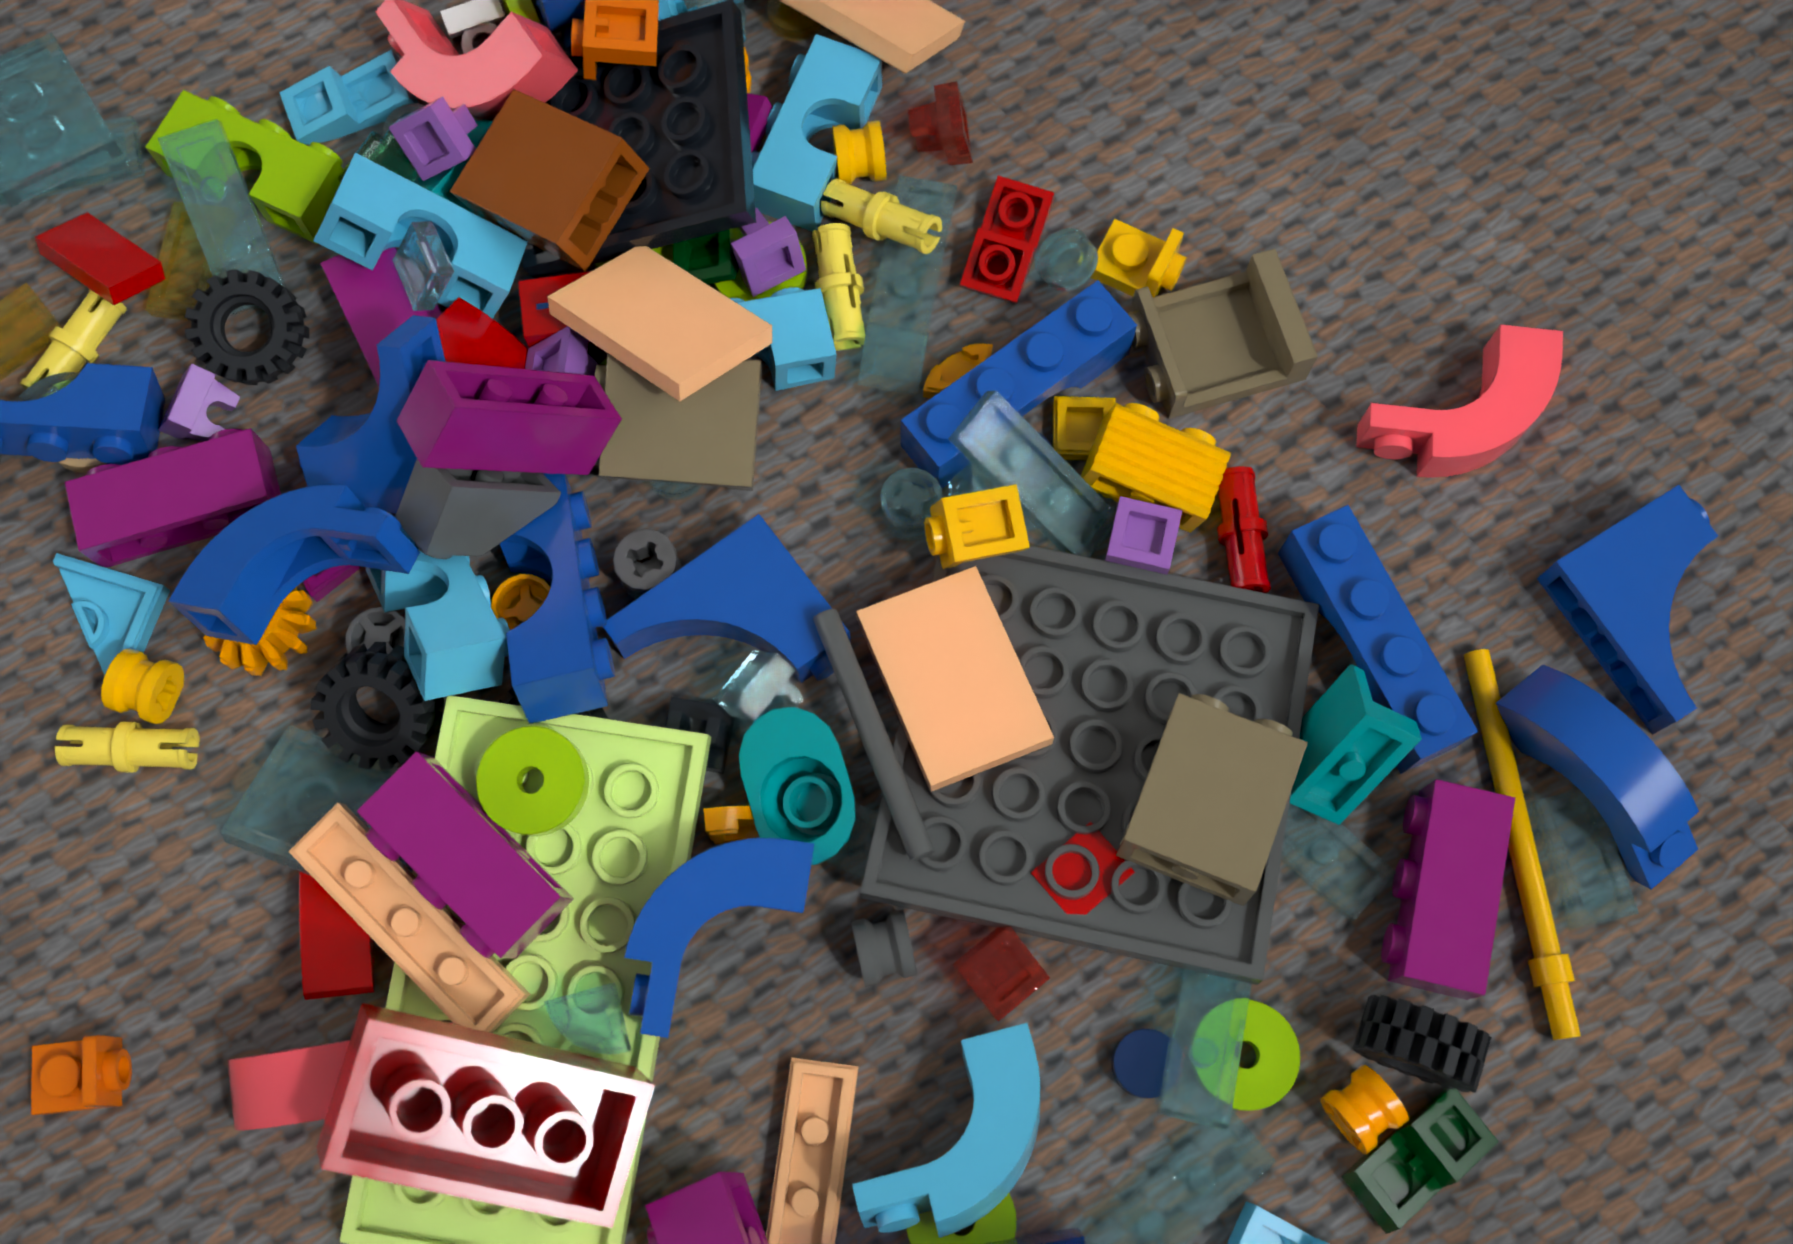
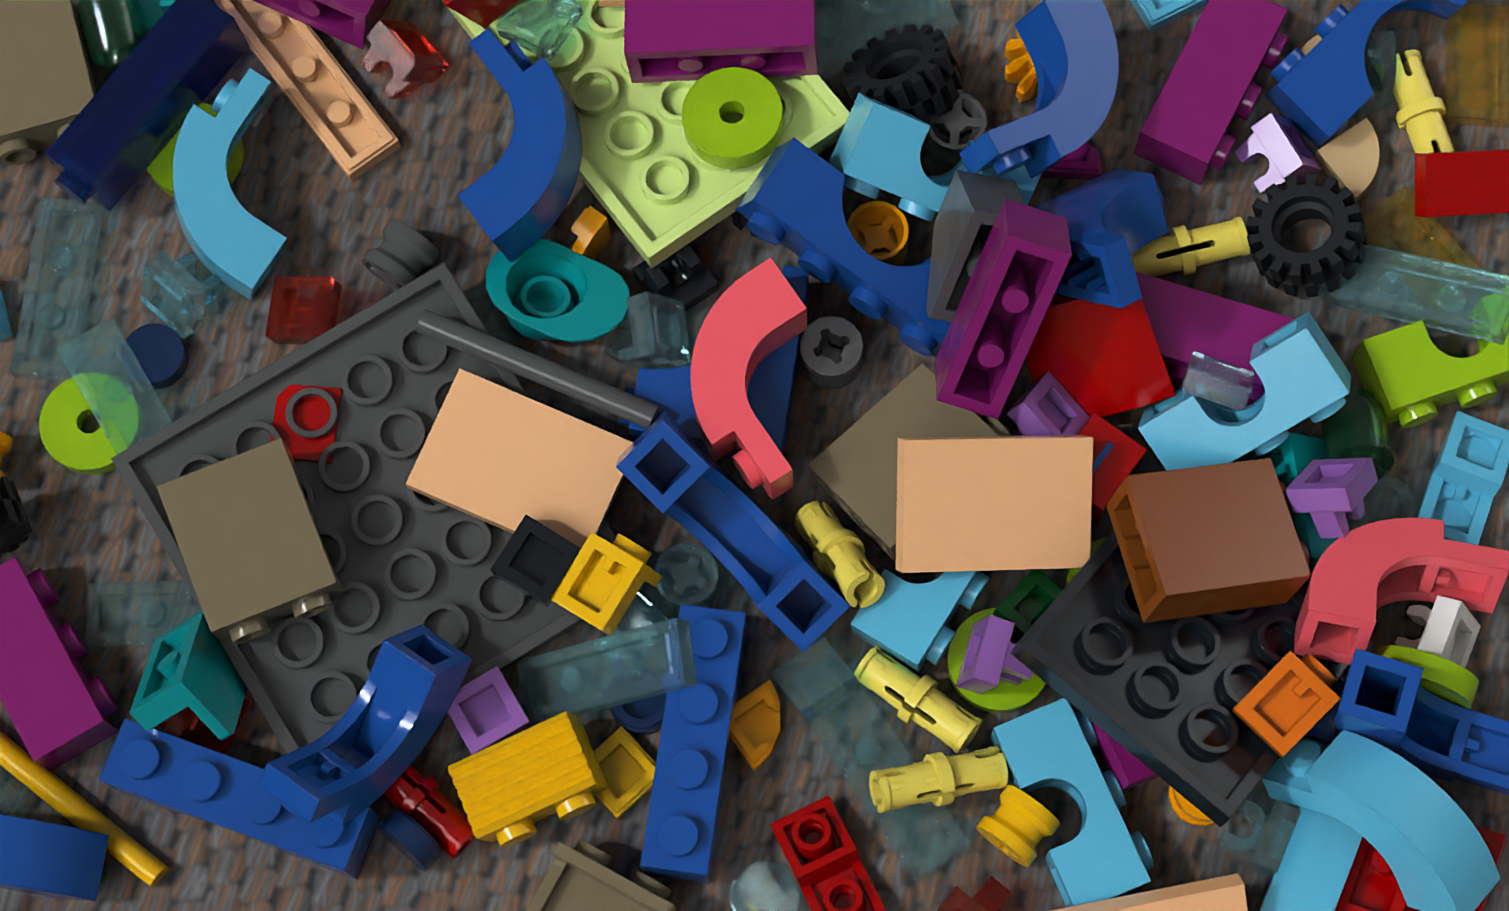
camera: 140 degrees right, 0 degrees up
(165, 352) = (1352, 158): none -> tan tile
(317, 393) = (1225, 241): none -> light yellow pin
(714, 1126) = (407, 53): none -> clear red tile
(738, 596) = (736, 336): none -> coral arch
(793, 411) = (839, 554): none -> light yellow pin
(850, 531) = (735, 529): none -> blue arch
(1013, 586) = (535, 560): none -> black tile
(1087, 1094) = (175, 293): none -> clear light blue tile
(1250, 569) = (378, 734): none -> blue arch
(1274, 506) = (410, 839): none -> dark blue tile

